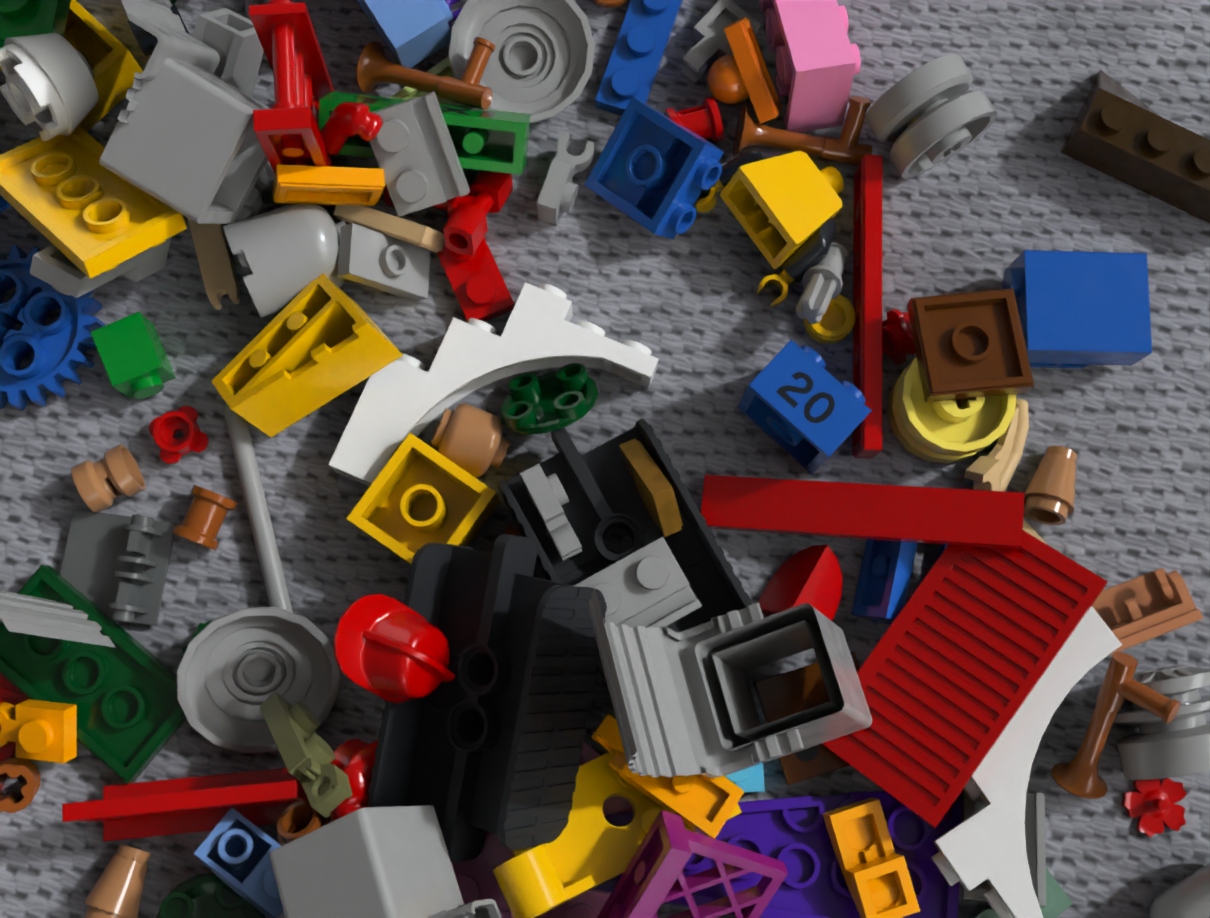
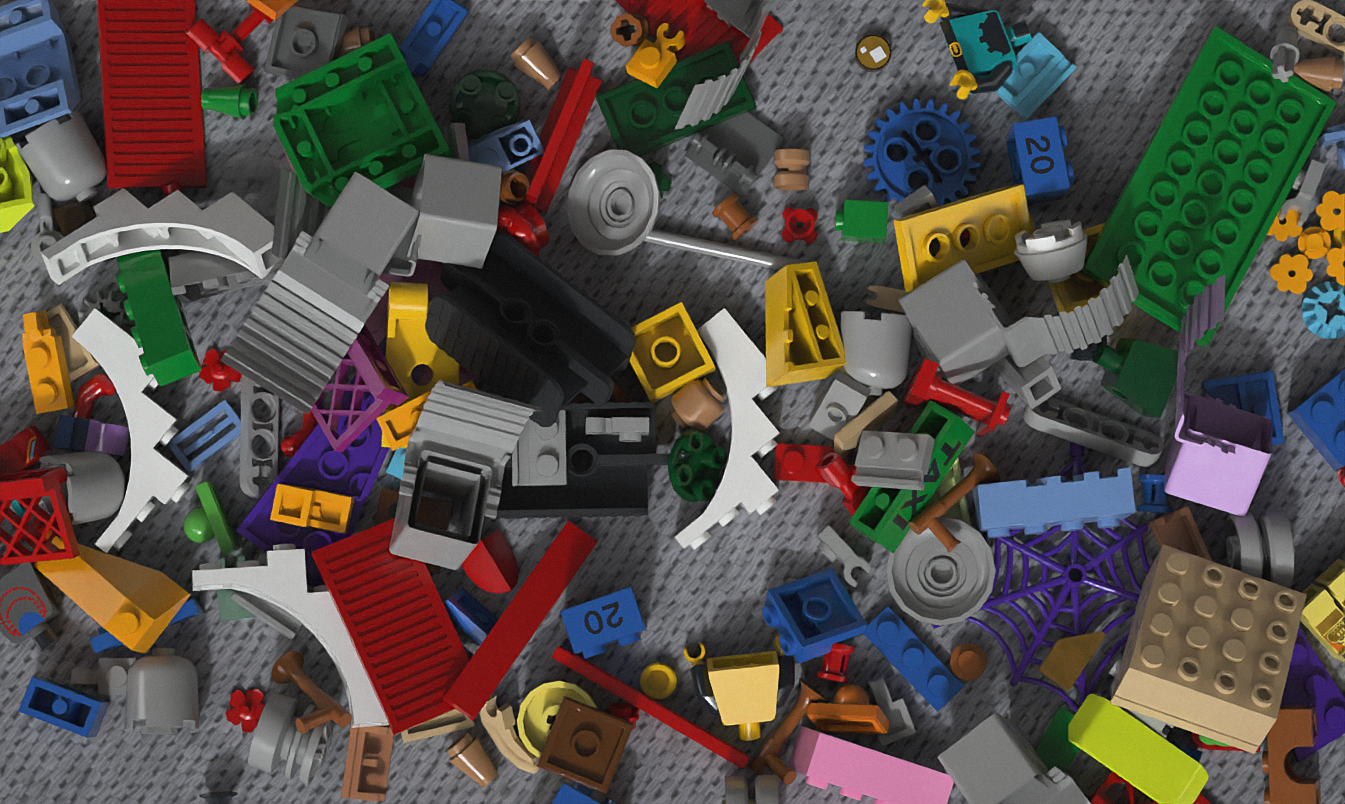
camera: 125 degrees right, 5 degrees up
(306, 753) = (552, 210): olive hinge -> none
(327, 185) = (899, 394): light orange tile -> none
(348, 120) = (926, 427): red arm -> none
(391, 649) = (580, 289): red piece -> none
(652, 487) = (602, 496): pearl gold tile -> none
(822, 284) = (679, 683): light grey axle -> none

